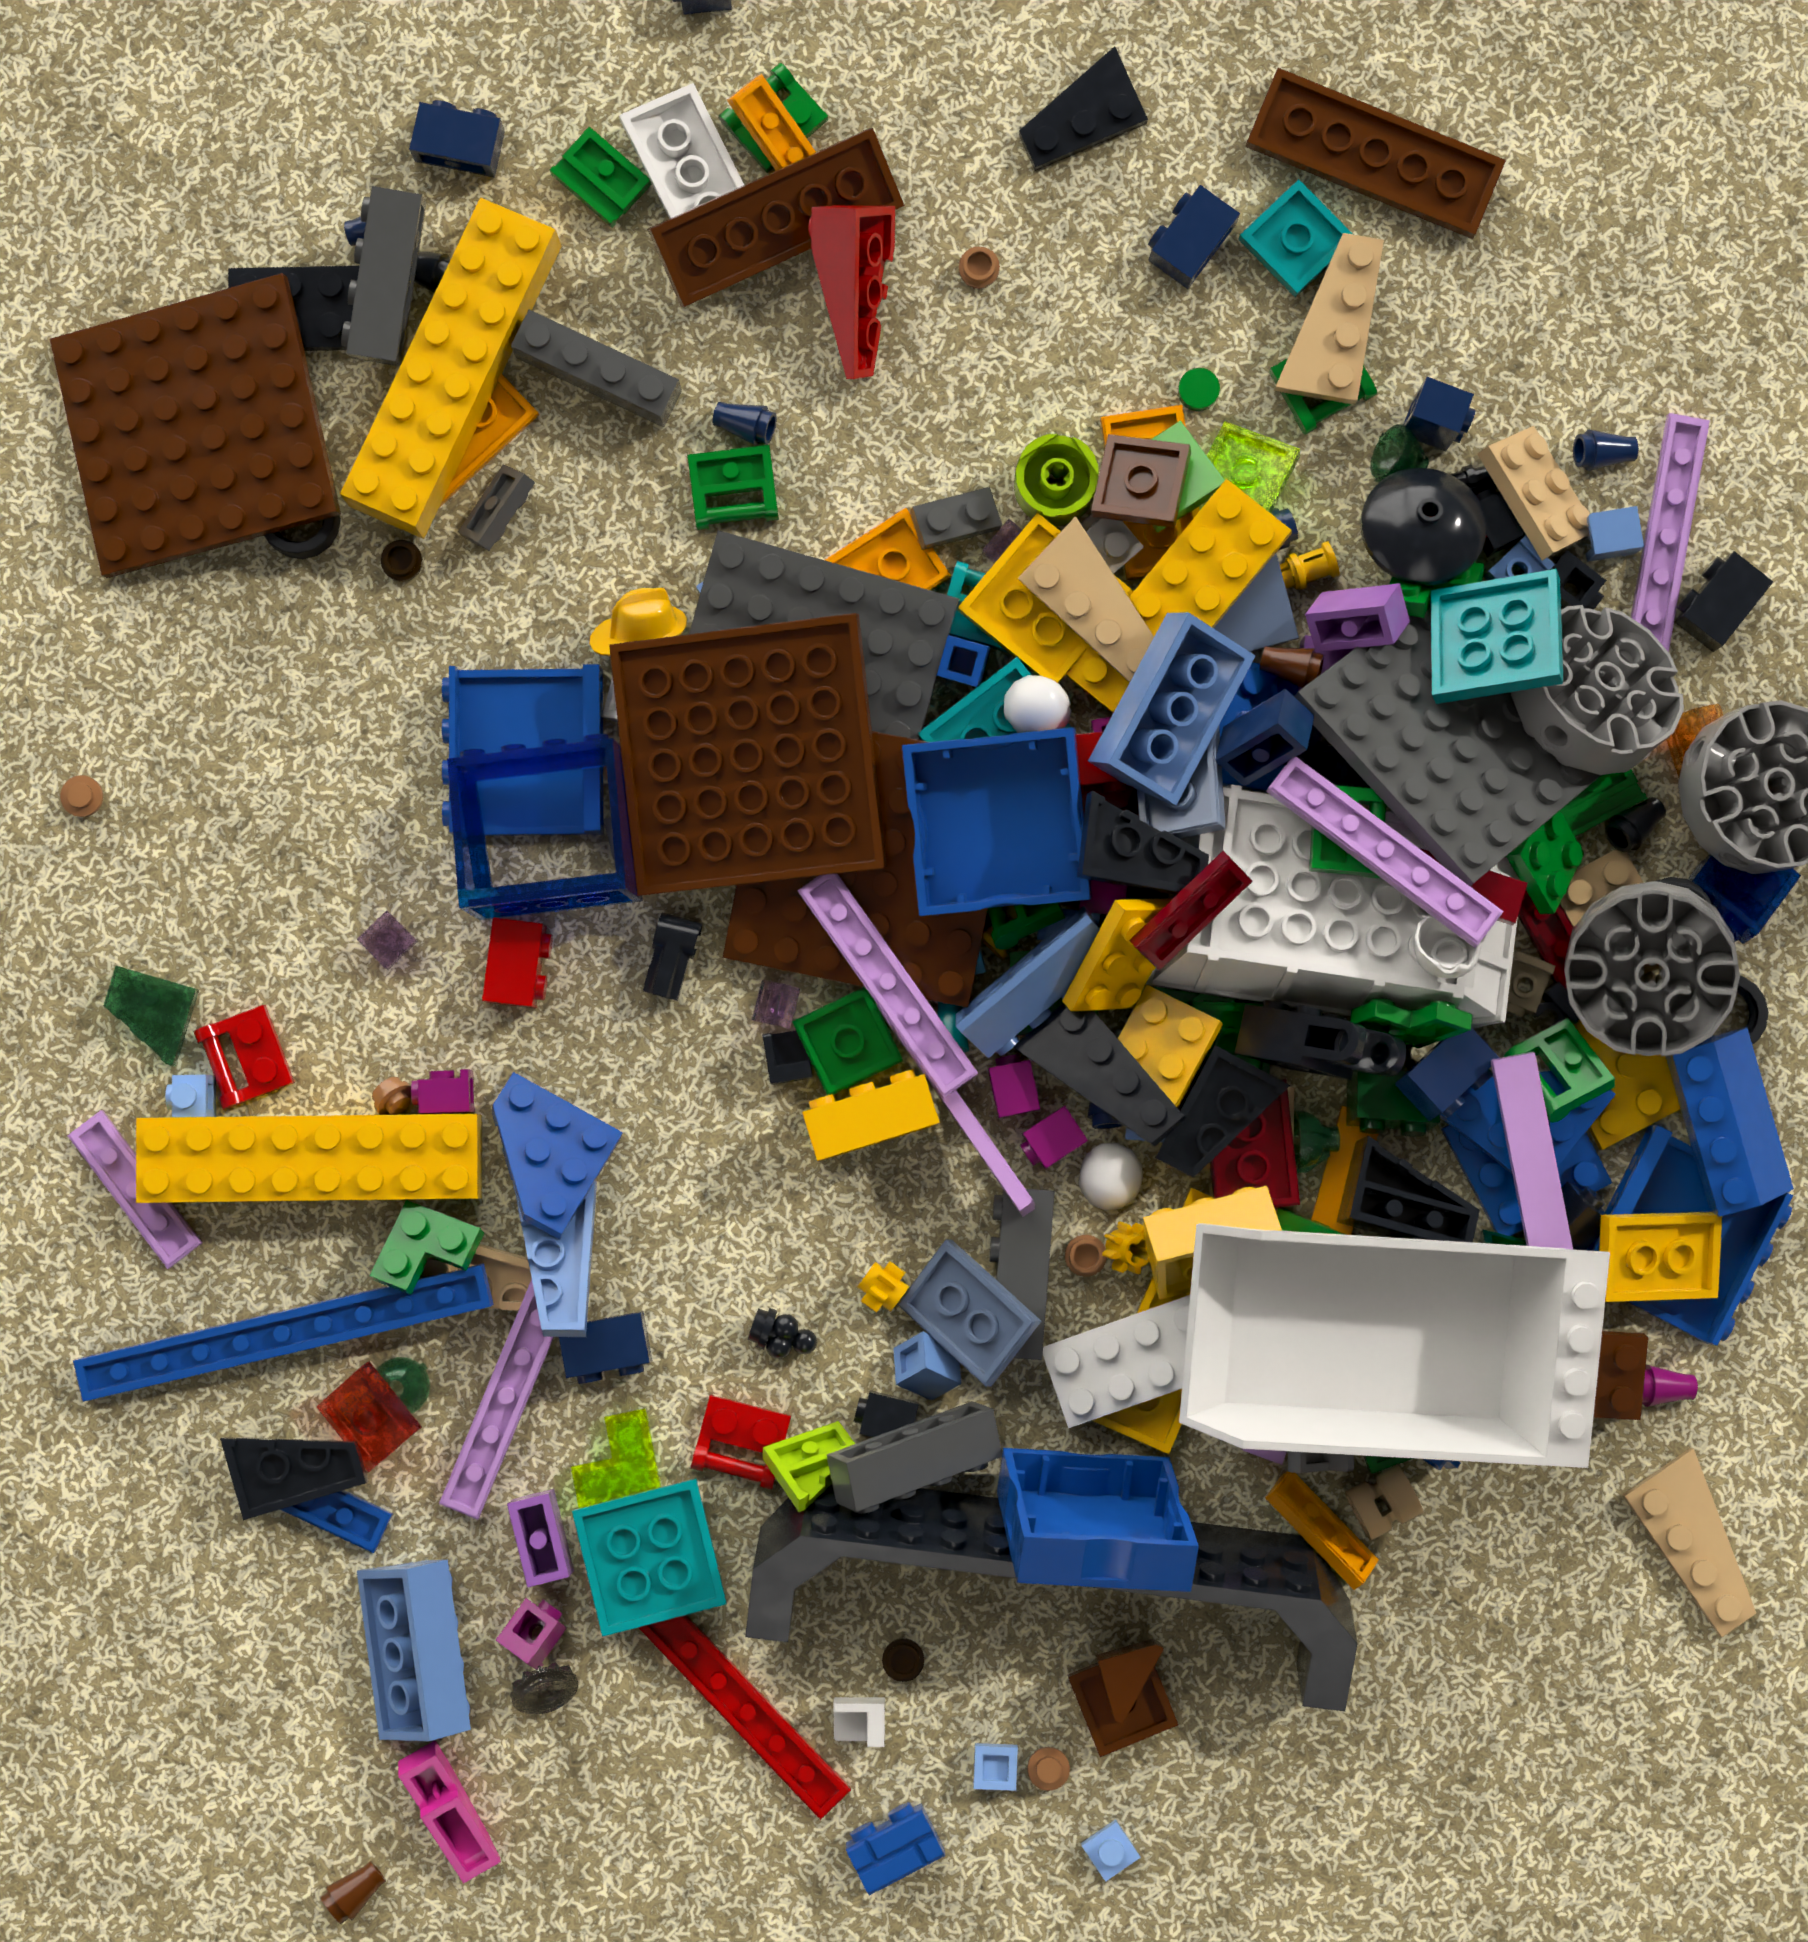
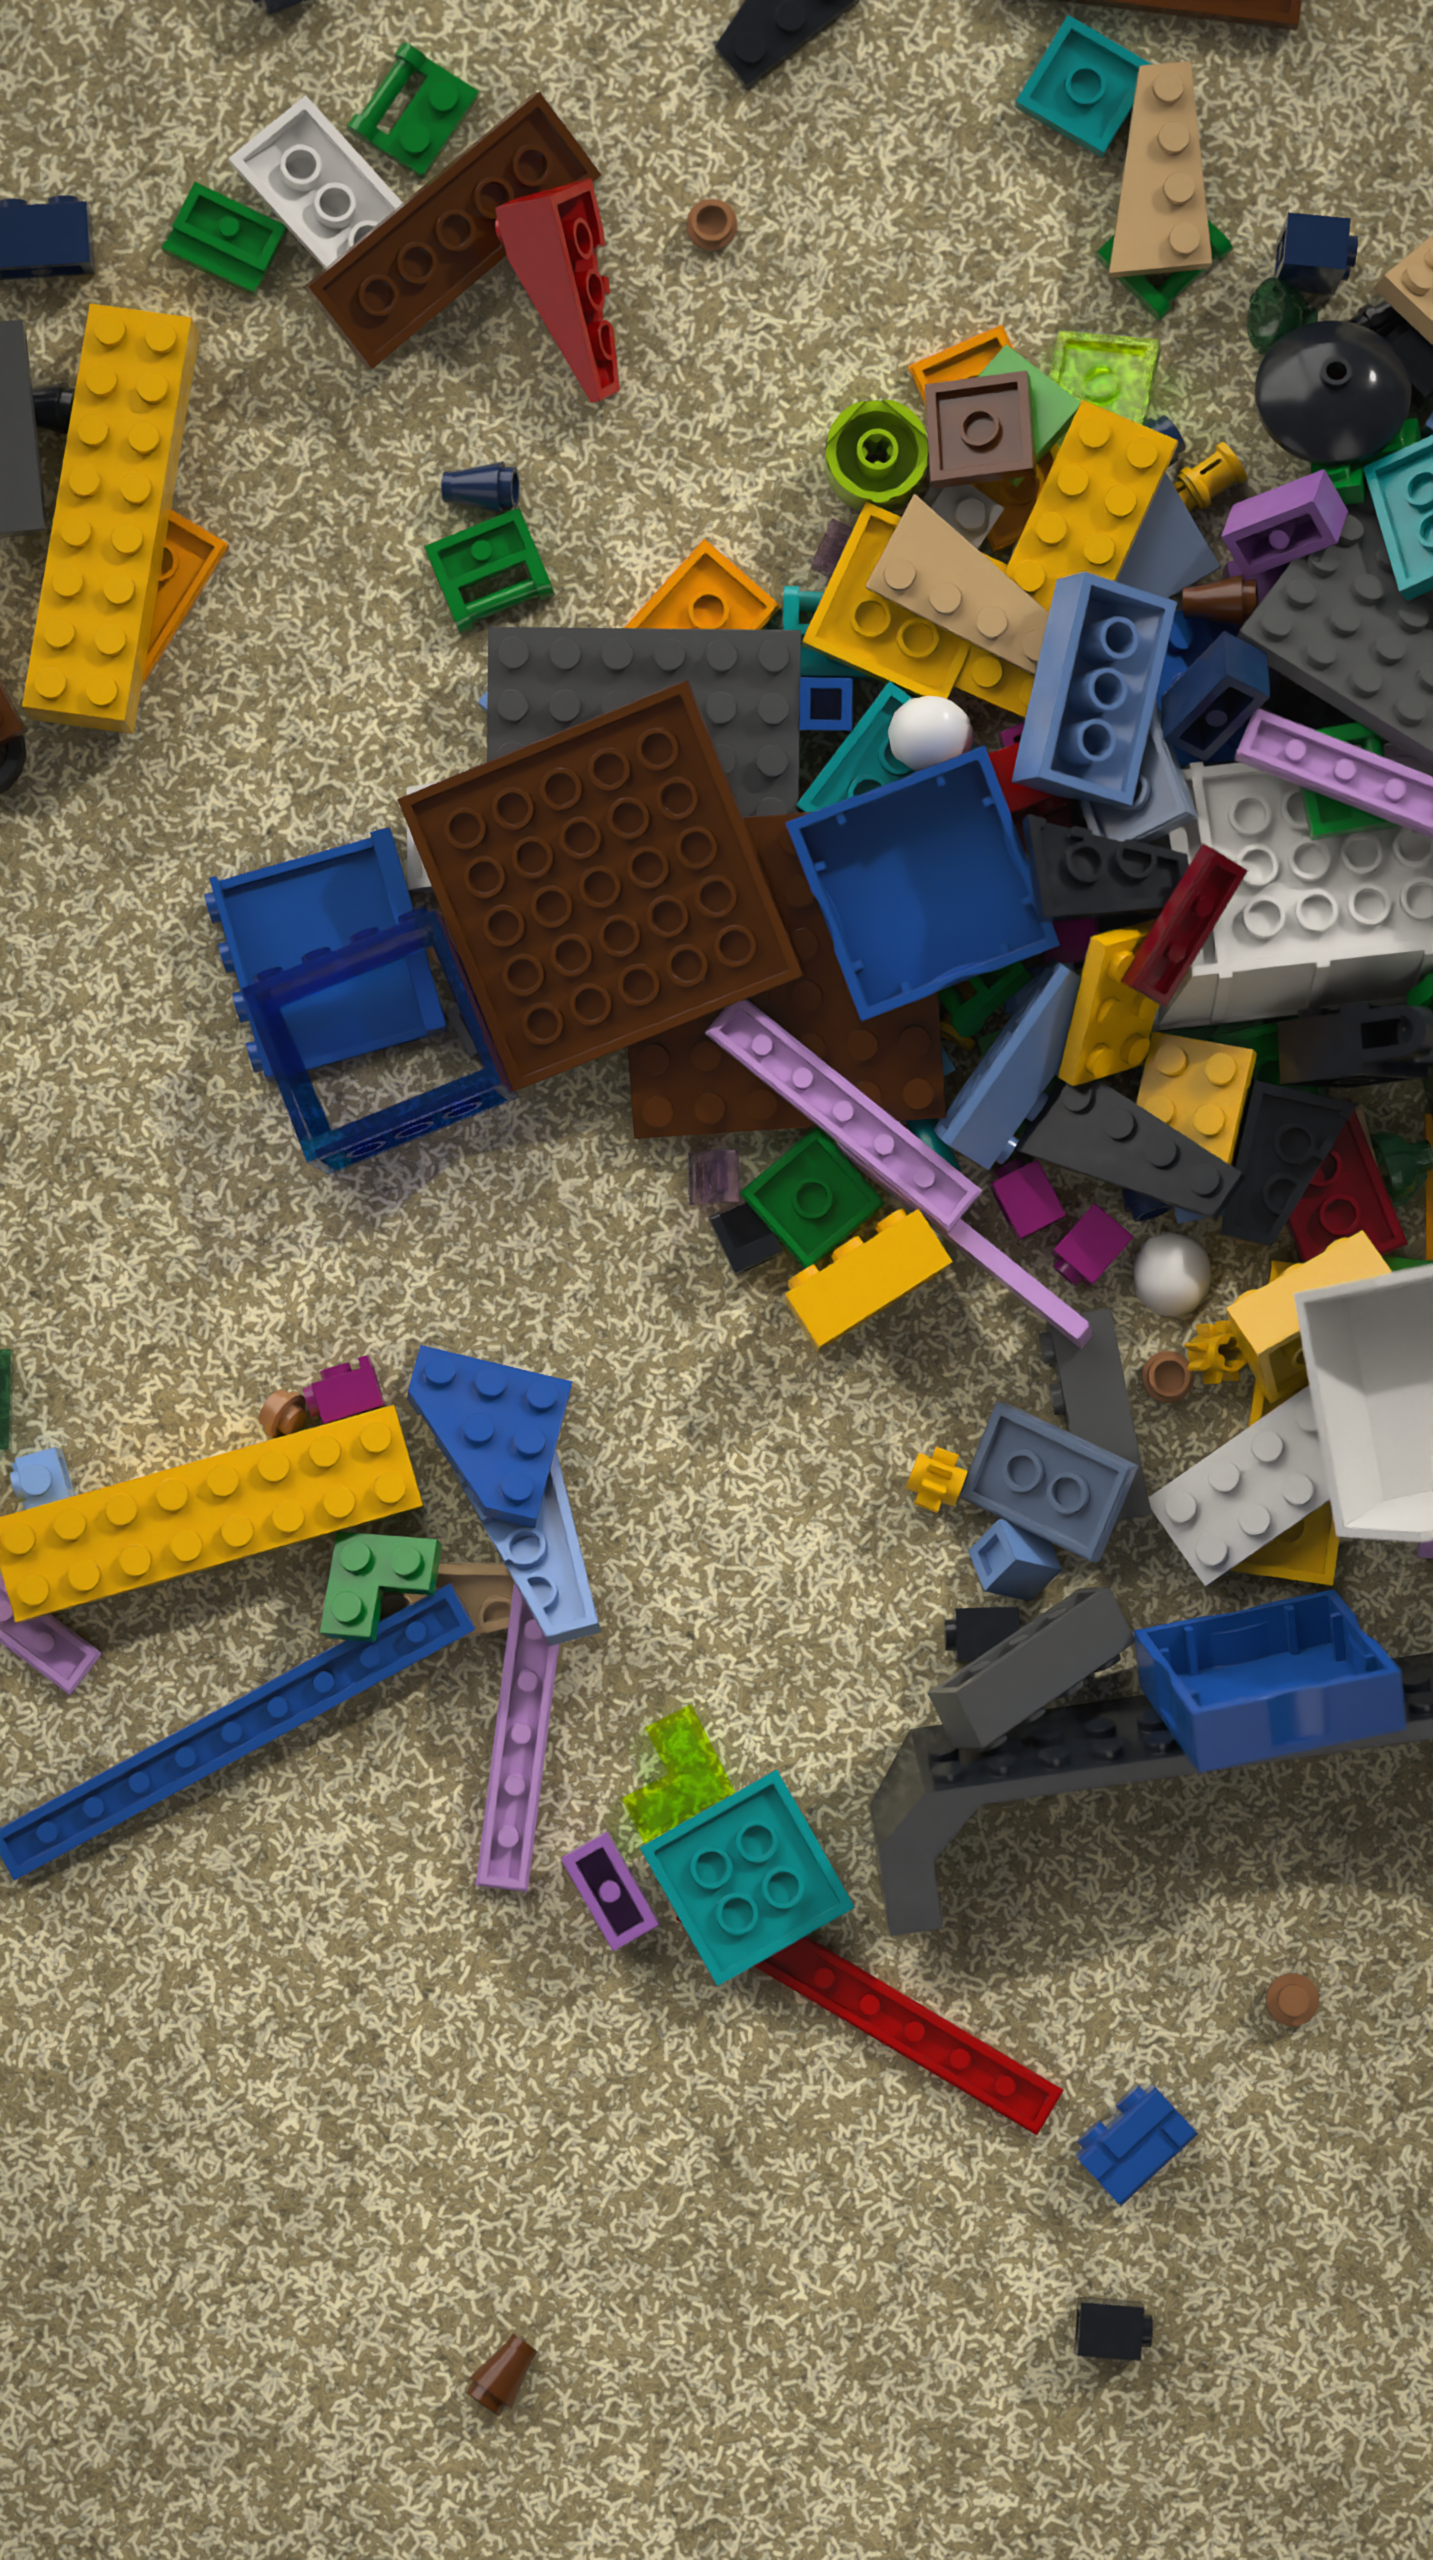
camera: 15 degrees left, 0 degrees up
(257, 1052) = (105, 1406): red plate -> none
(289, 1471) = (287, 1894): black wing -> none
(345, 1518) = (340, 1926): blue tile -> none
(369, 1413) = (363, 1803): clear red tile -> none
(387, 940) = (224, 1228): clear purple plate -> none
(401, 560) = (113, 767): dark brown plate -> none
(413, 1378) = (409, 1753): clear green piece -> none
(414, 1651) = (494, 2068): medium blue slope -> none
(448, 1811) = (589, 2248): dark pink slope -> none
(496, 507) = (210, 672): dark grey plate -> none
(516, 963) = (388, 1214): red brick -> none
(518, 1632) = (613, 2012): magenta brick -> none
(554, 1686) = (673, 2078): clear smoke gear -> none
(596, 368) = (285, 471): dark grey brick -> none
(609, 1345) = (629, 1638): dark blue brick -> none
(637, 617) = (418, 758): yellow piece -> none
(673, 949) = (572, 1148): black piece -> none
(742, 1427) = (816, 1693): red plate -> none
(770, 123) = (414, 120): light orange tile -> none
(780, 1334) = (828, 1570): black piece -> none
(802, 1462) = (901, 1713): lime wing -> none
(860, 1720) = (1051, 2004): white panel -> none
(903, 1659) = (1083, 1918): dark brown plate -> none
(955, 518) = (768, 535): dark grey plate -> none
(995, 1766) = (1228, 2014): light blue plate -> none
(1110, 1850) = (1393, 2076): light blue plate -> none
(1126, 1672) = (1354, 1858): reddish brown slope -> none
(1147, 1717) = (1358, 1893): reddish brown plate -> none
(1193, 235) = (960, 118): dark blue brick -> none
(1198, 389) = (1016, 300): green tile -> none

